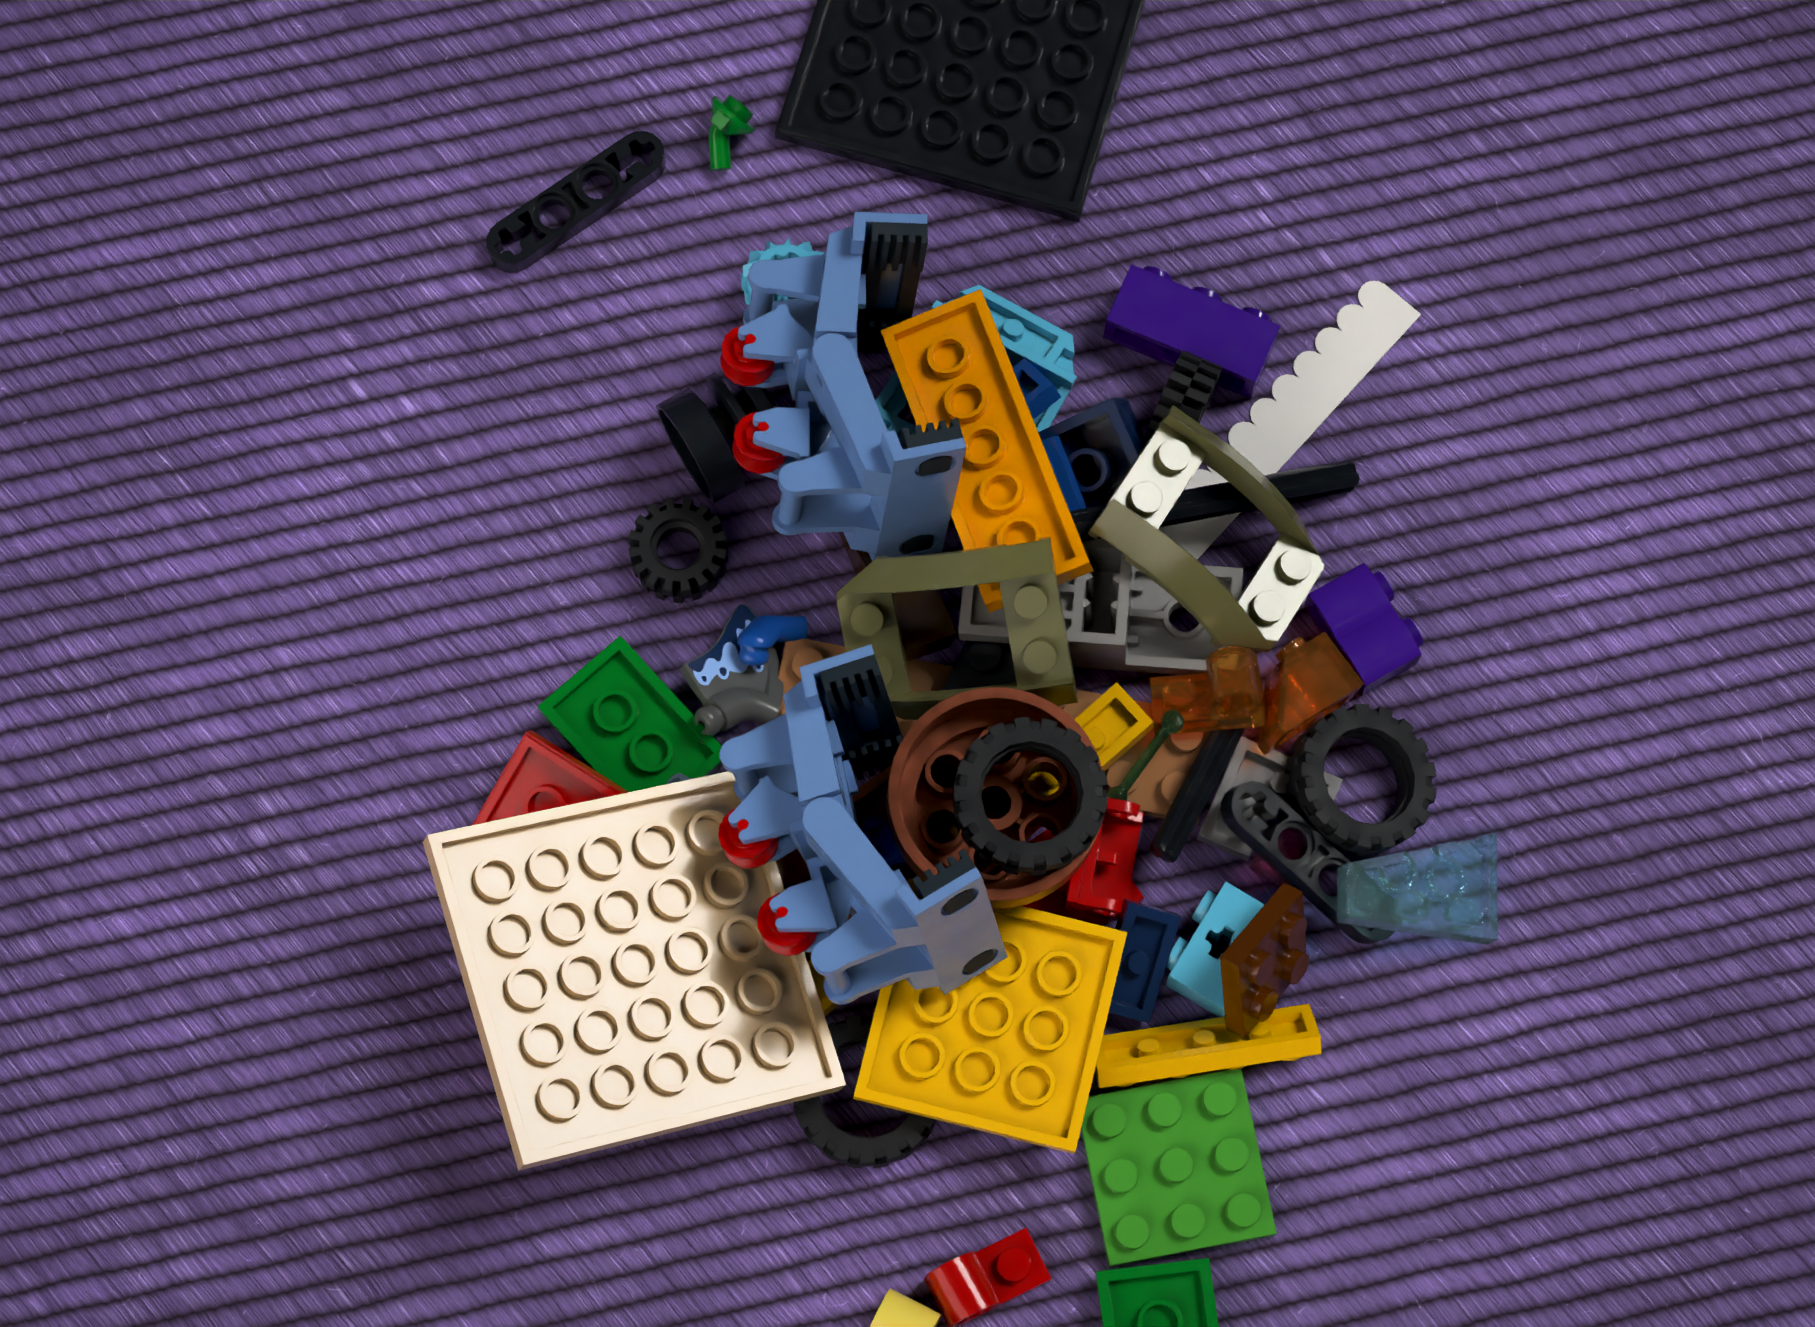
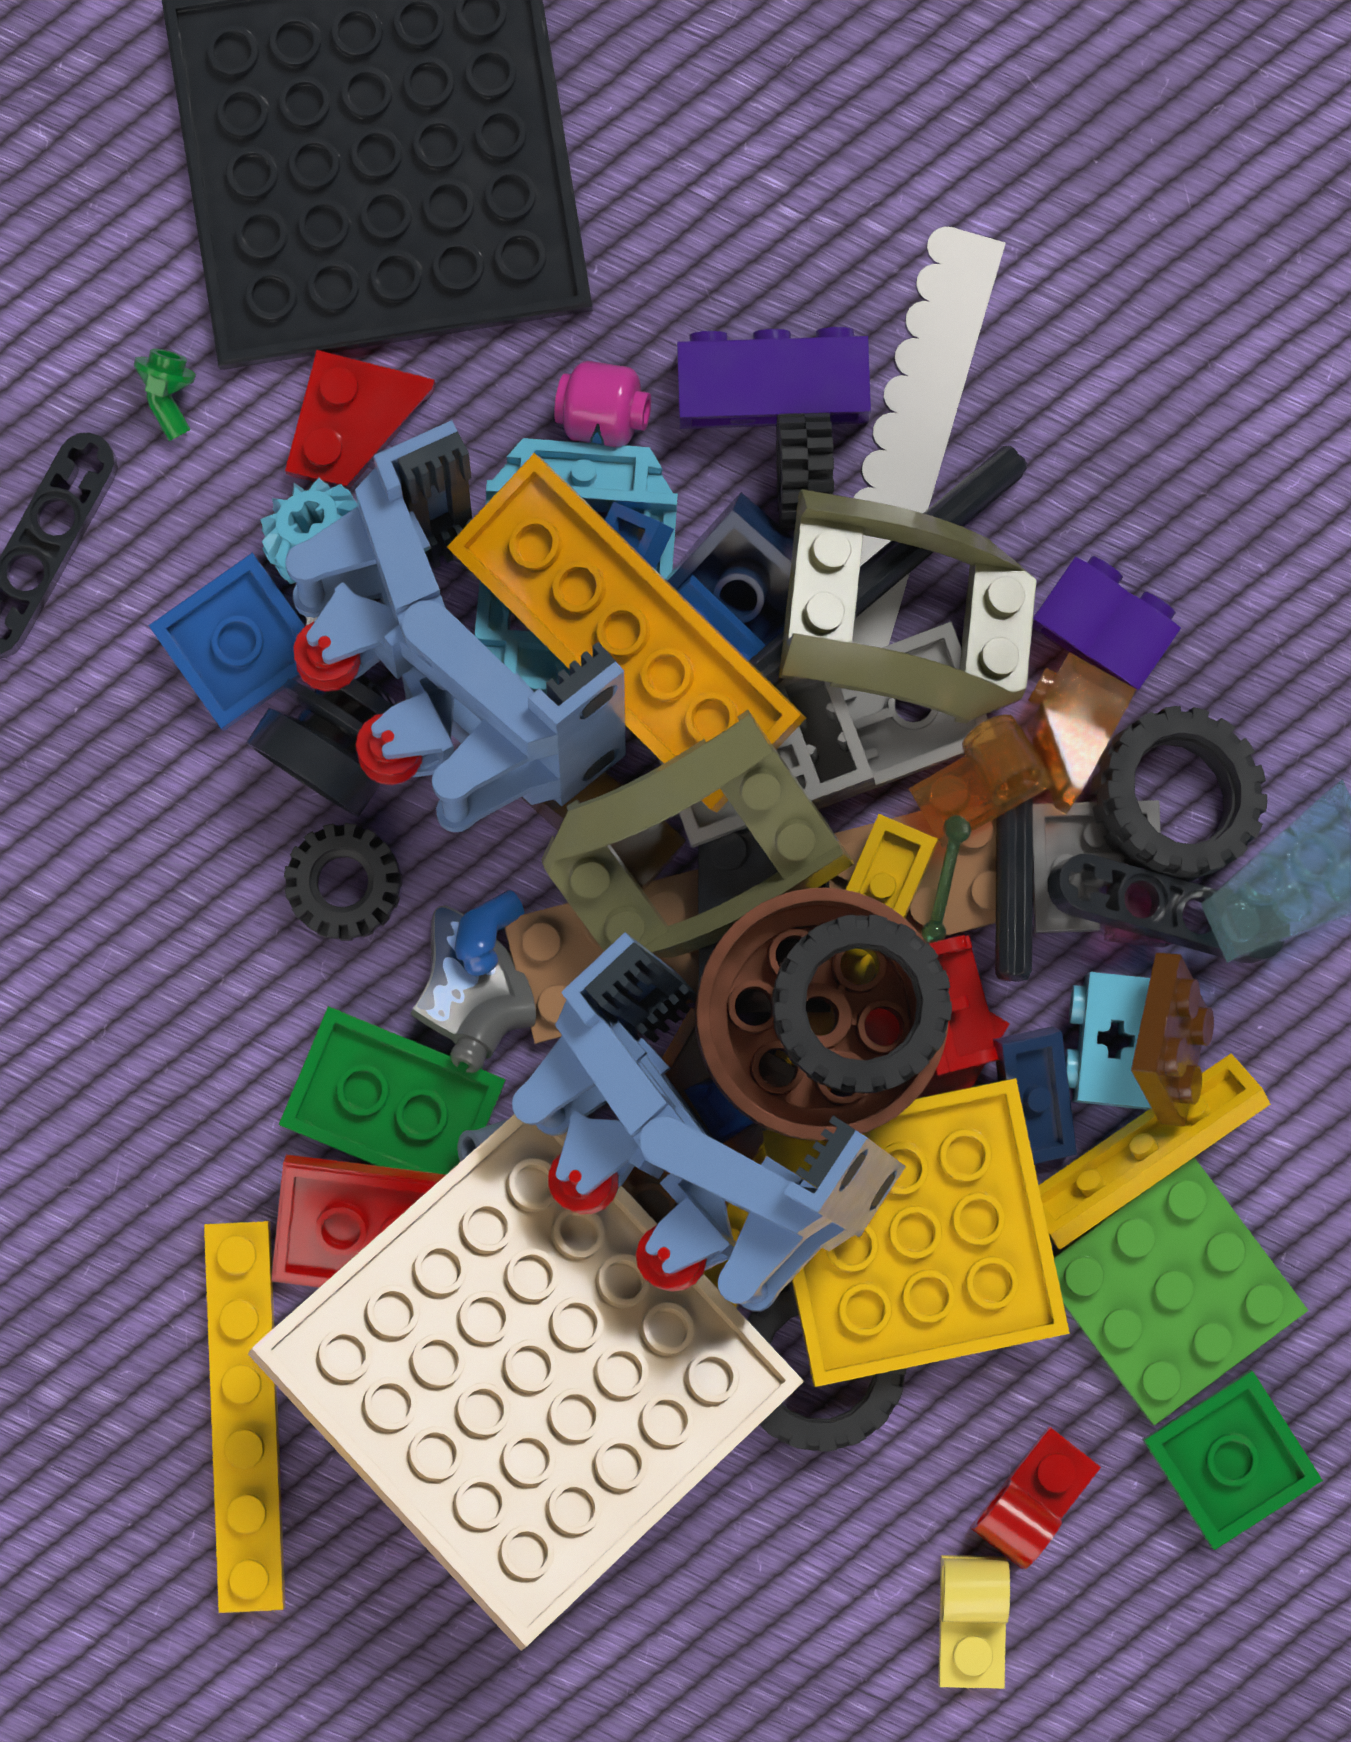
camera: 25 degrees left, 10 degrees up
(393, 928) = (243, 1419): none -> yellow plate
(682, 333) = (233, 641): none -> blue plate
(852, 190) = (350, 416): none -> red wing
(1051, 287) = (601, 404): none -> dark pink head

